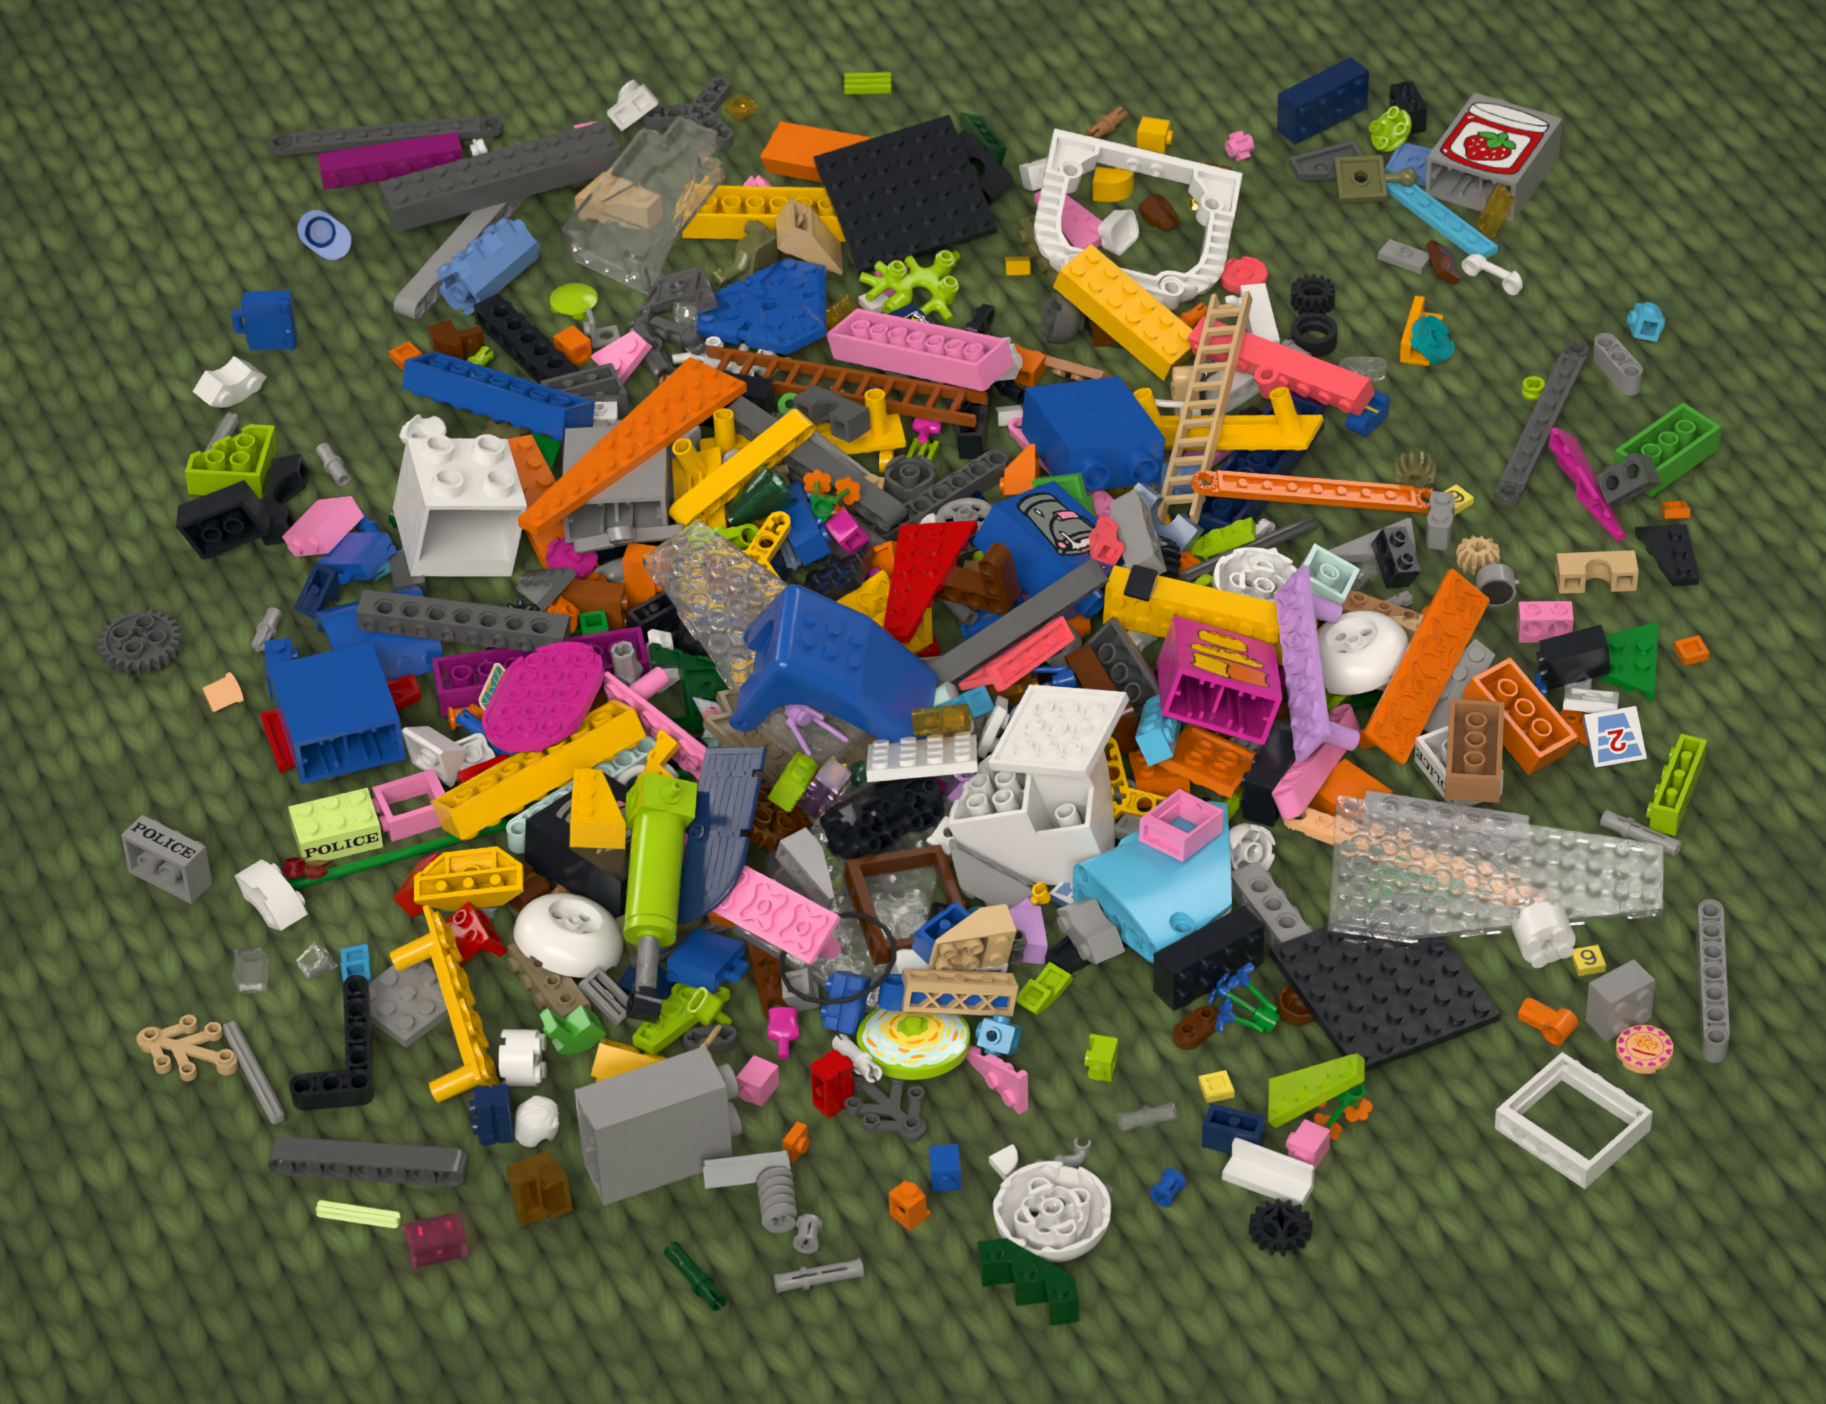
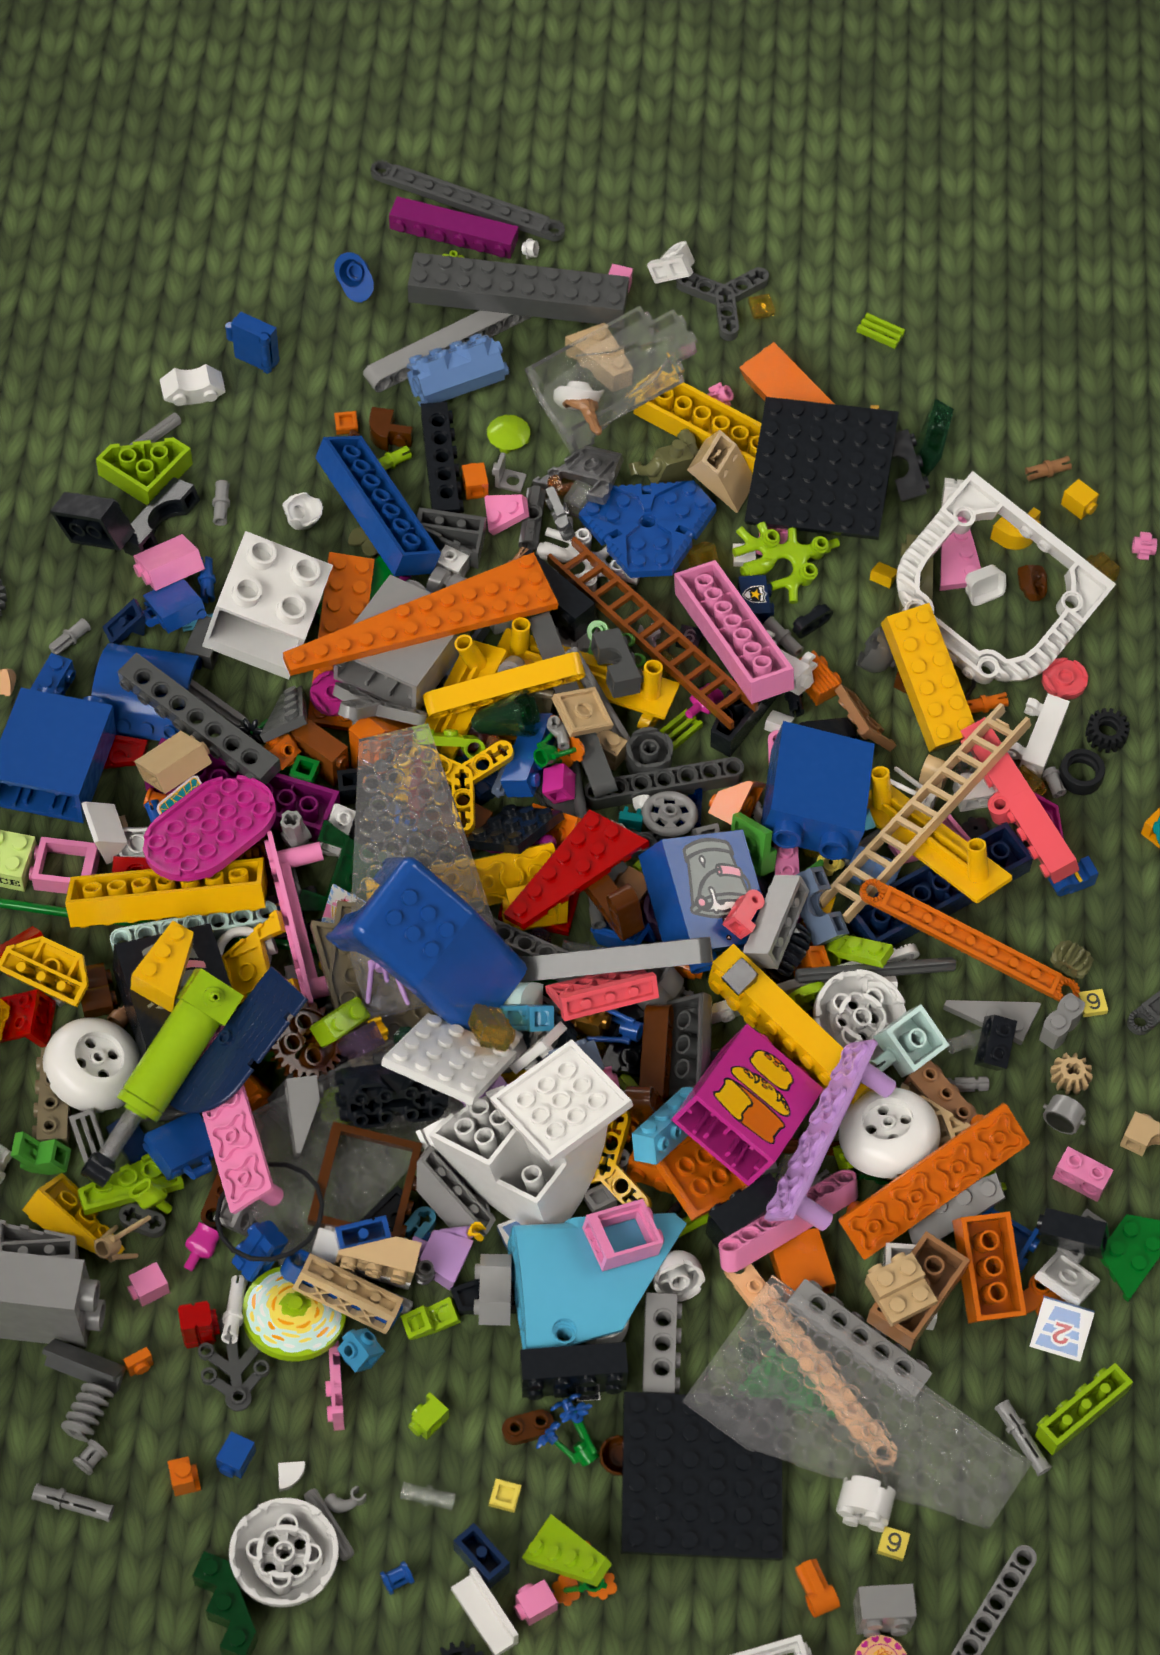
camera: 25 degrees right, 15 degrees up
(466, 661) = (173, 761): none -> tan brick
(634, 230) = (581, 397): none -> hat
(653, 312) = (561, 489): none -> clear orange arm
(823, 481) = (558, 729): none -> light grey arm
(833, 457) = (582, 711): none -> tan plate
(1370, 367) = (1102, 827): clear beam -> none
(1461, 745) = (900, 1288): none -> tan plate

